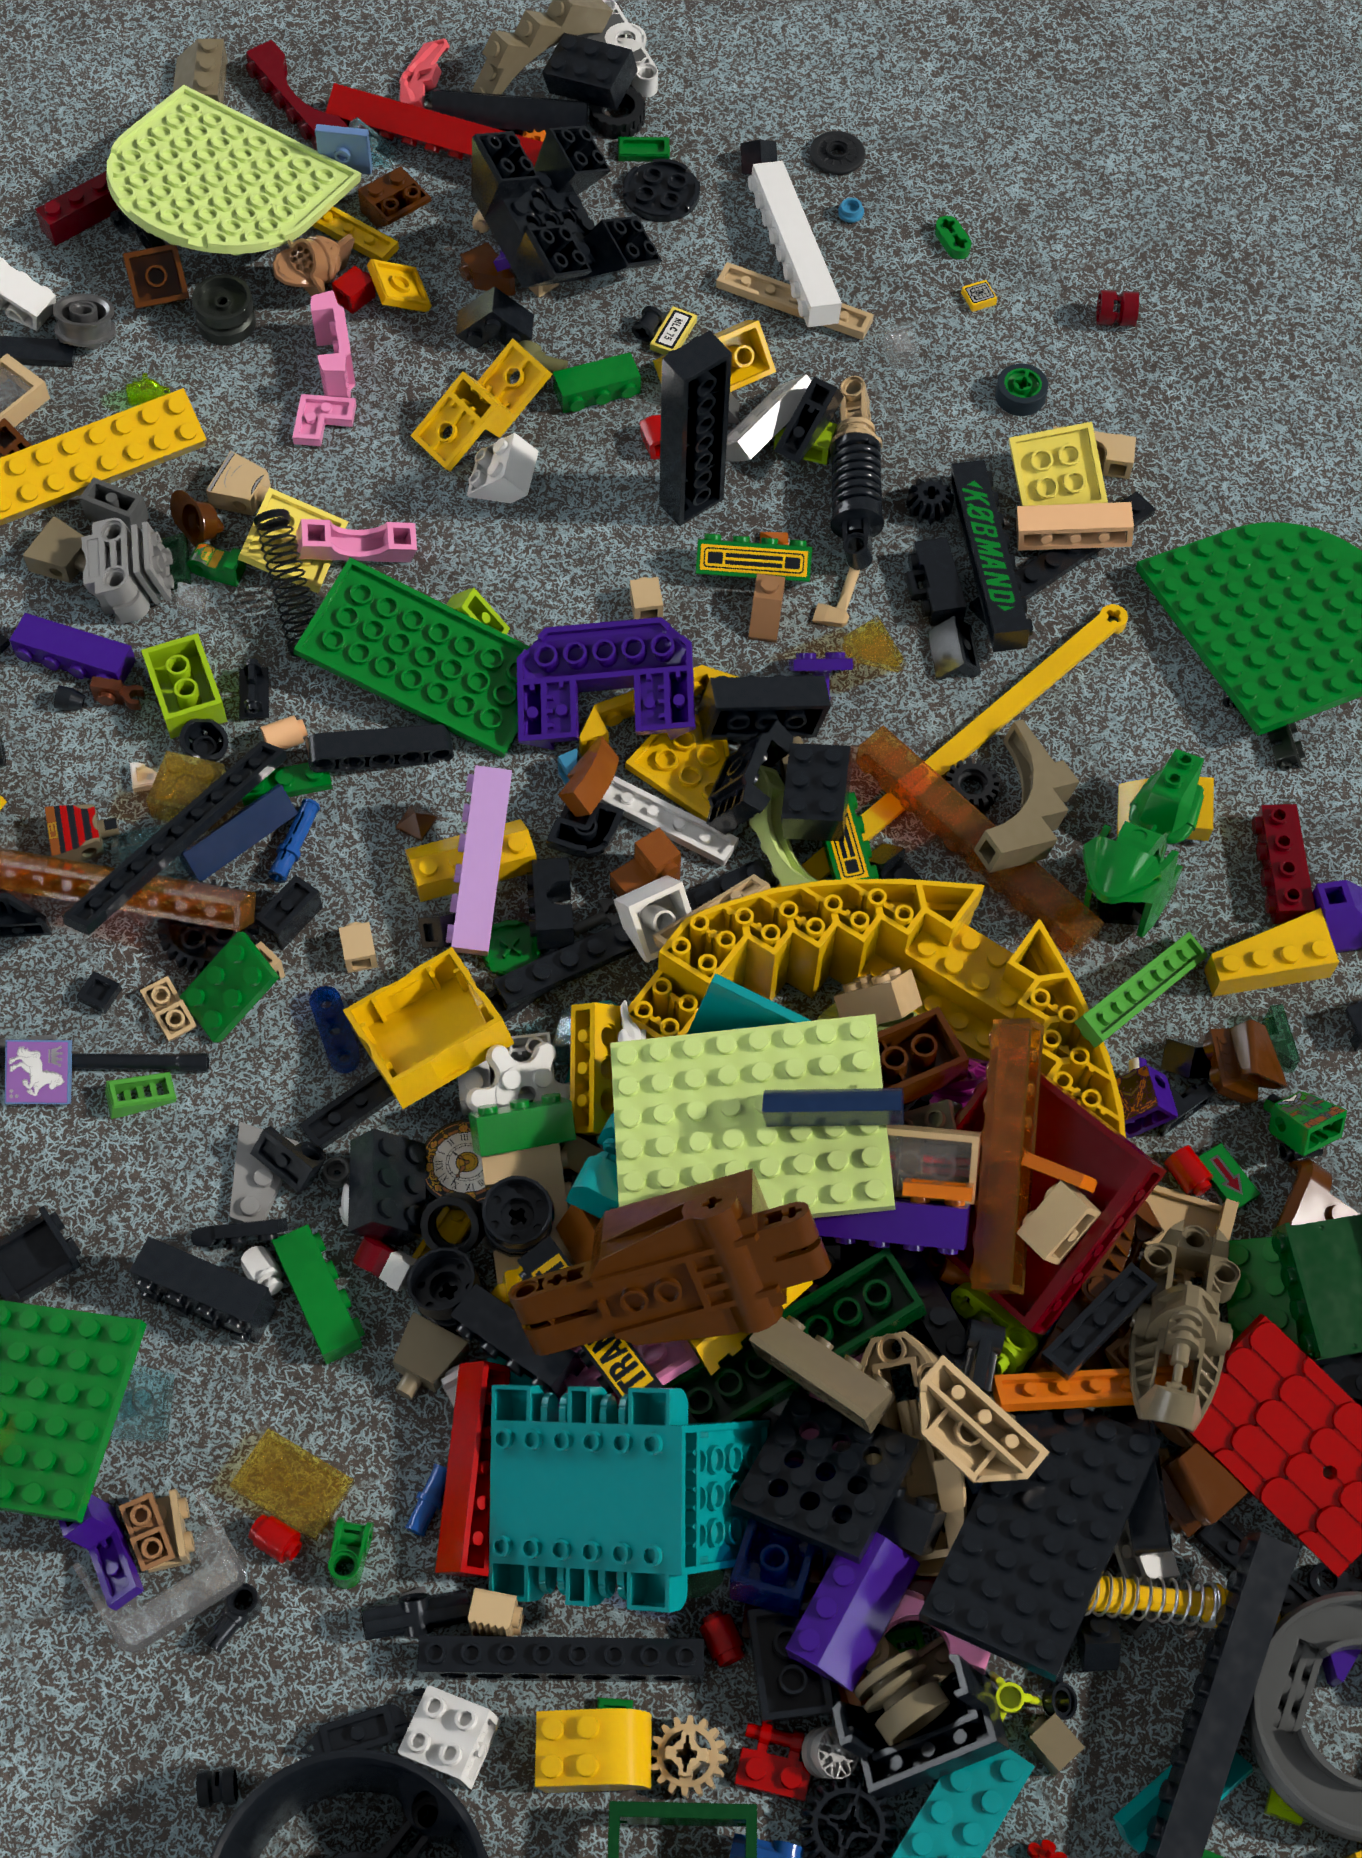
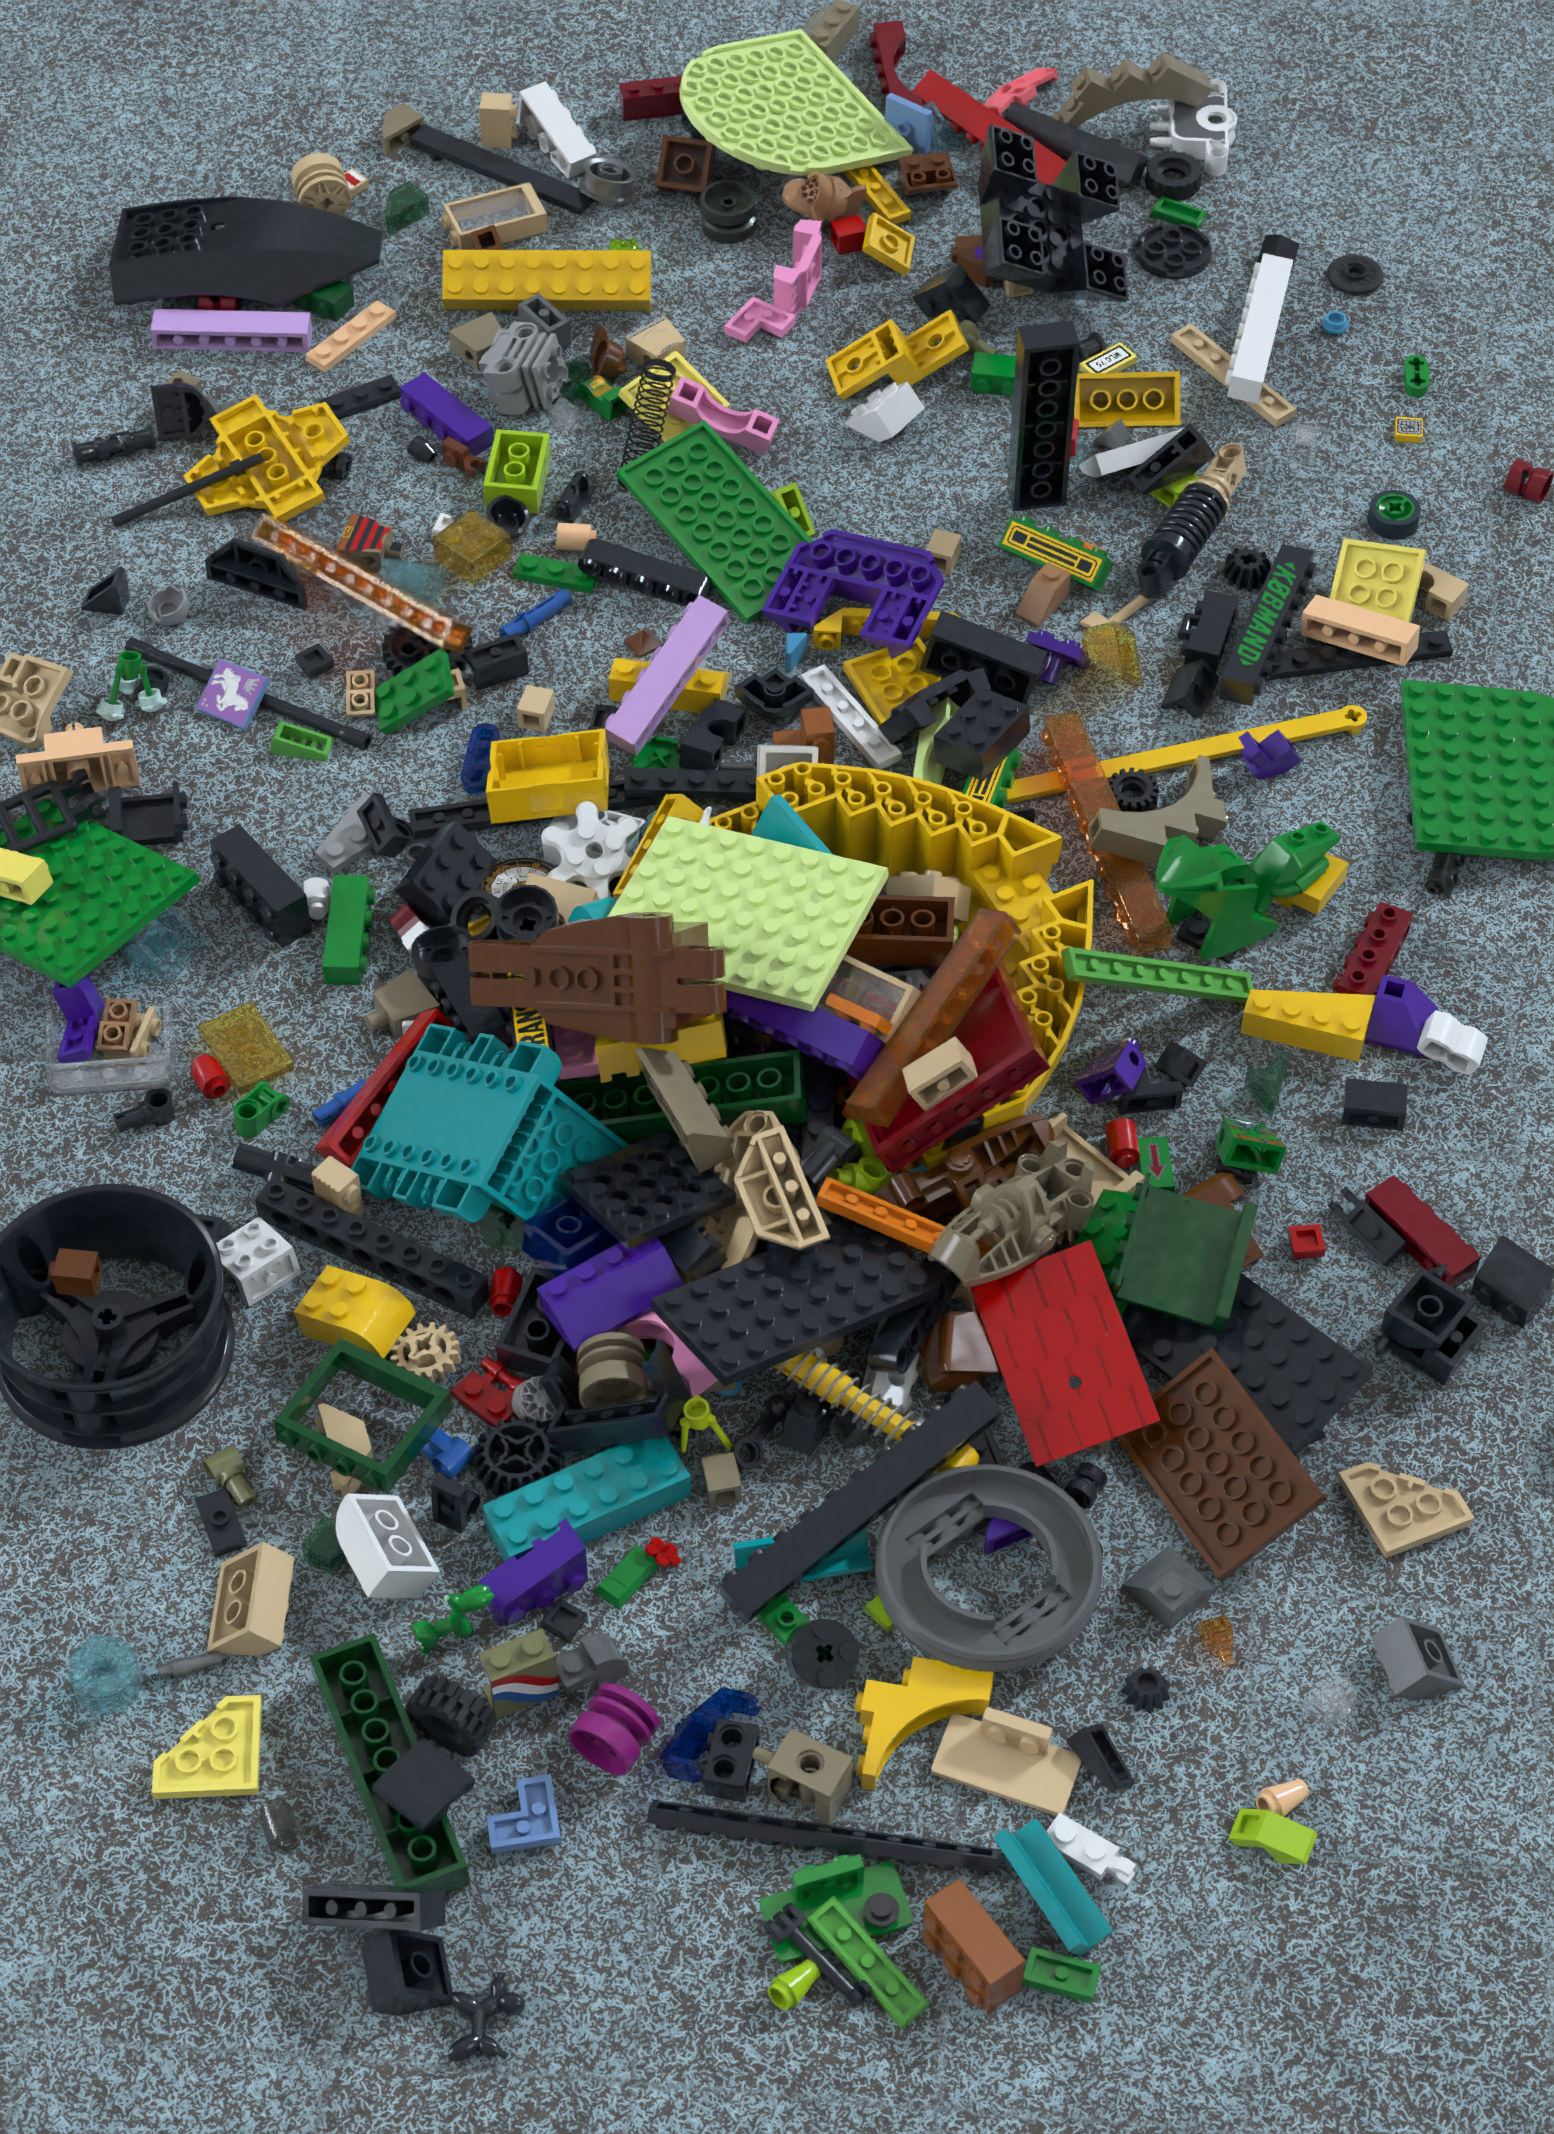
camera: 30 degrees right, 10 degrees down
(173, 838) = (435, 563): black plate -> none
(237, 1232) = (313, 861): black hinge -> none
(238, 833) = (492, 589): dark blue brick -> none
(522, 1125) = (573, 863): green brick -> none
(590, 71) = (1162, 131): black brick -> none
(590, 778) = (802, 656): dark orange slope -> none
(833, 1107) = (804, 913): dark blue brick -> none
(1059, 1172) = (966, 1038): orange tile -> none
(1068, 691) = (1270, 756): none -> dark purple brick
(1098, 1321) = (941, 1177): black plate -> none
(1243, 1061) = (1221, 1078): reddish brown piece -> none

